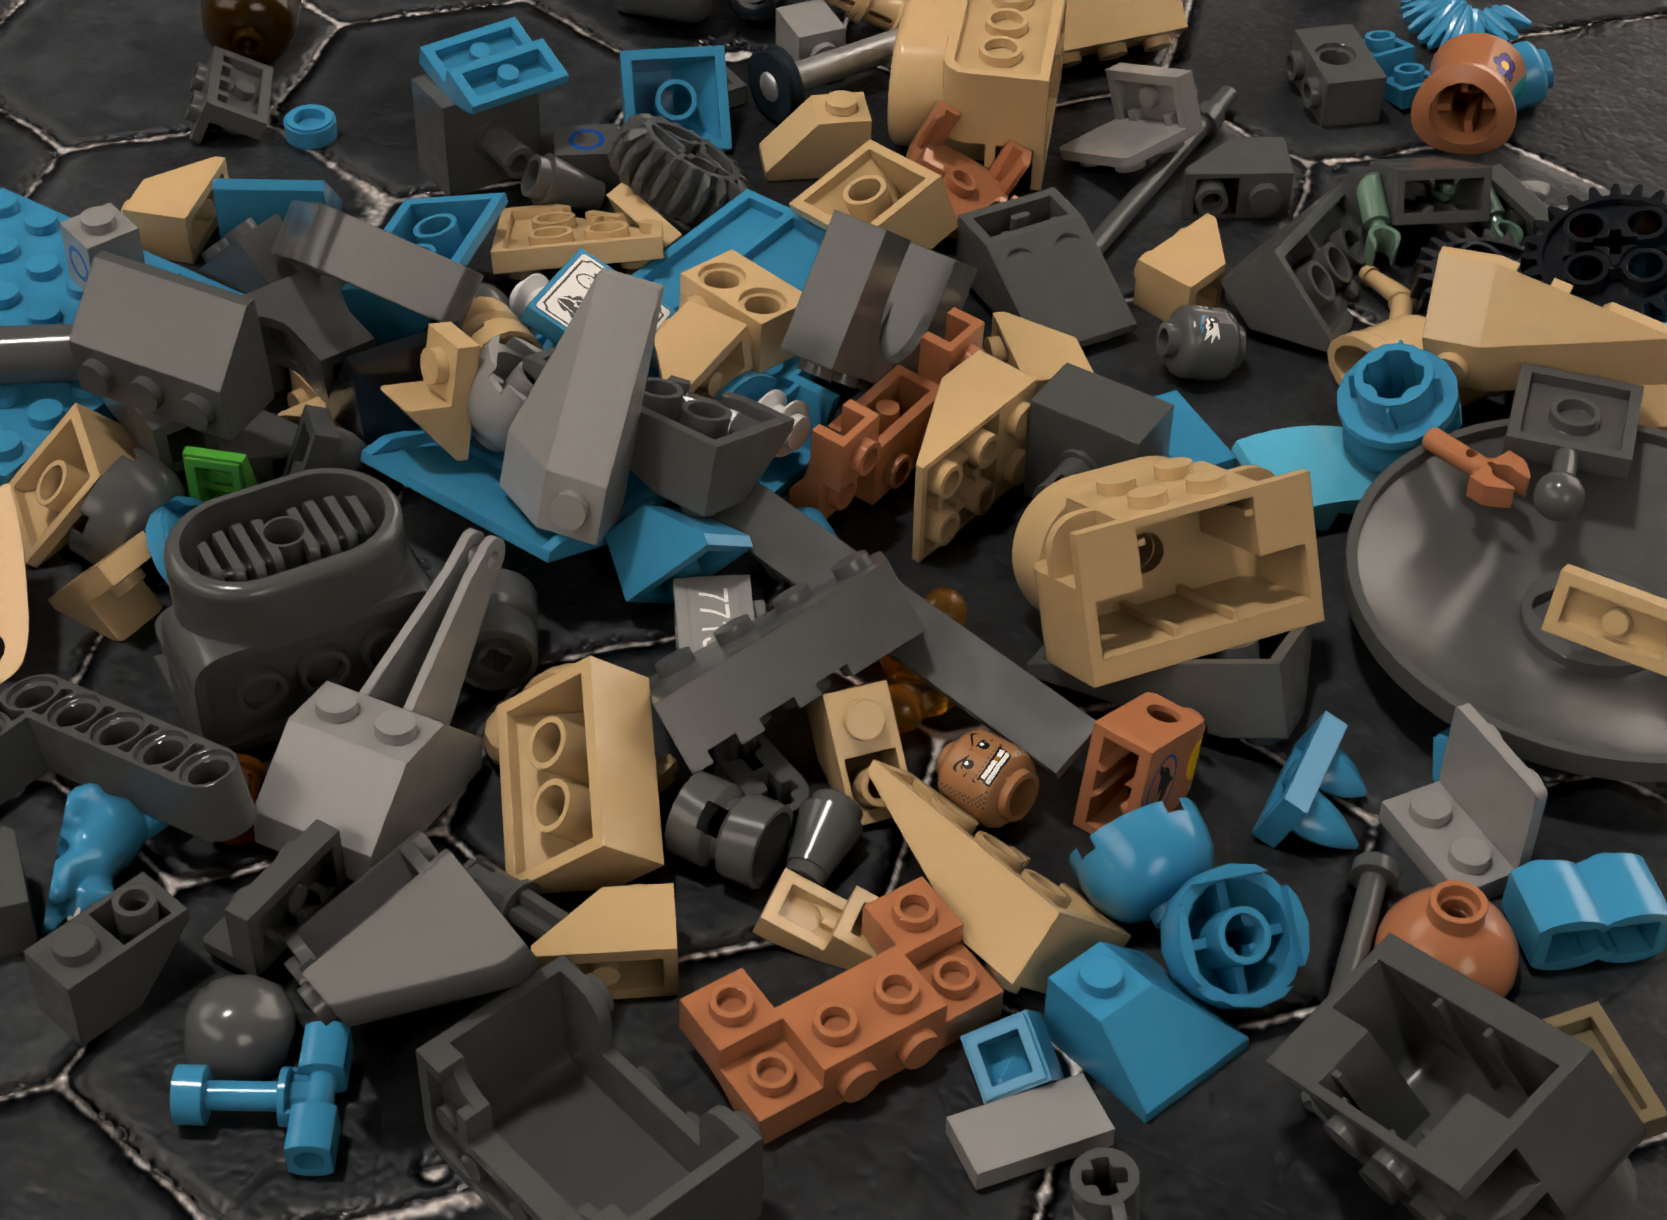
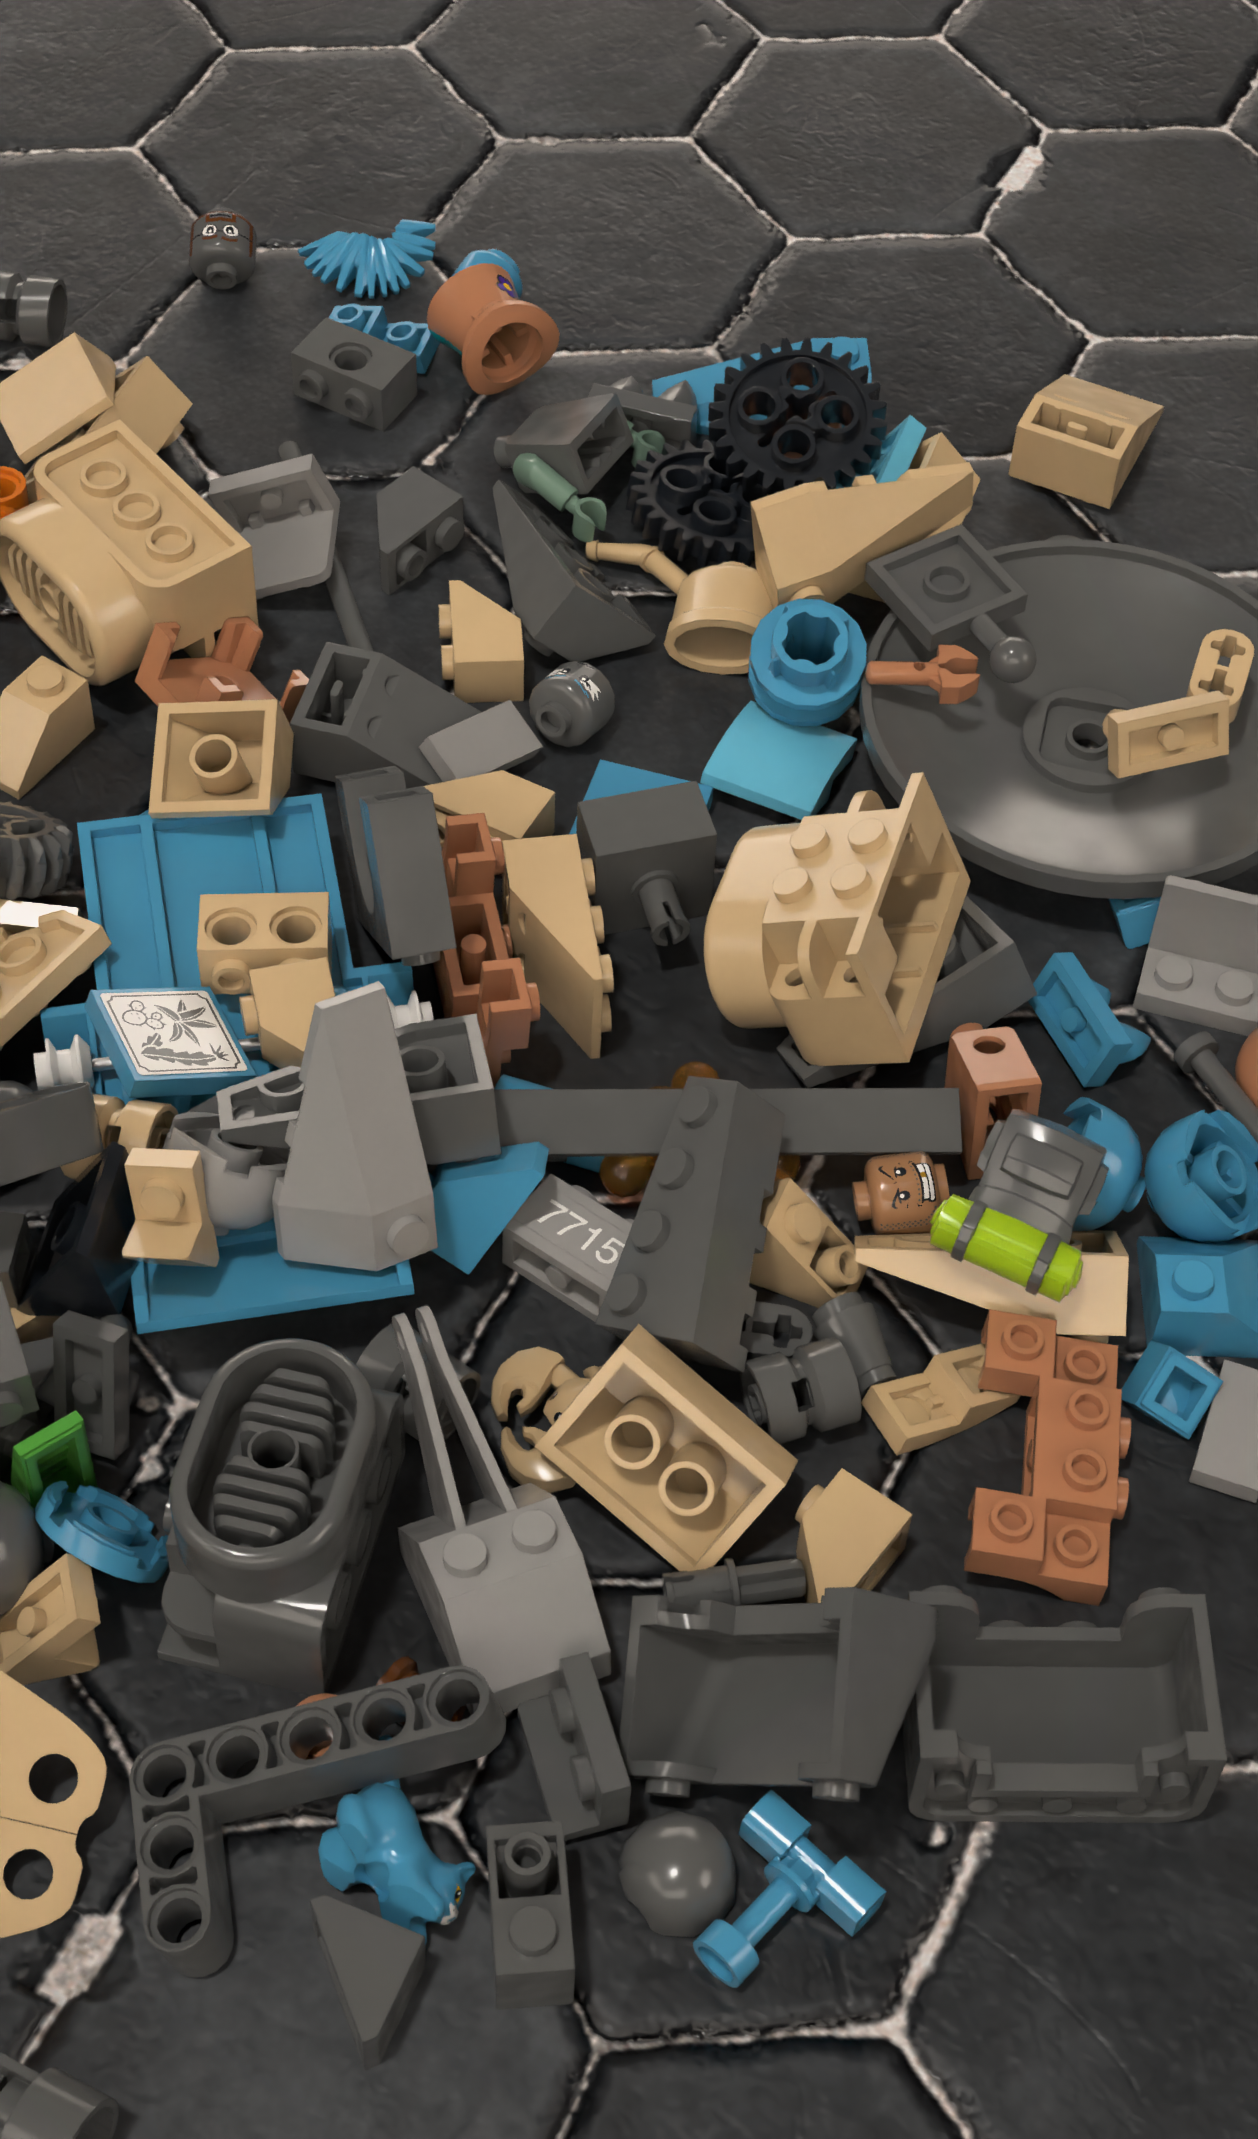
camera: 50 degrees left, 10 degrees up
(1014, 810) = (1025, 1205): none -> dark grey piece
(1099, 323) = (481, 744): none -> light grey tile

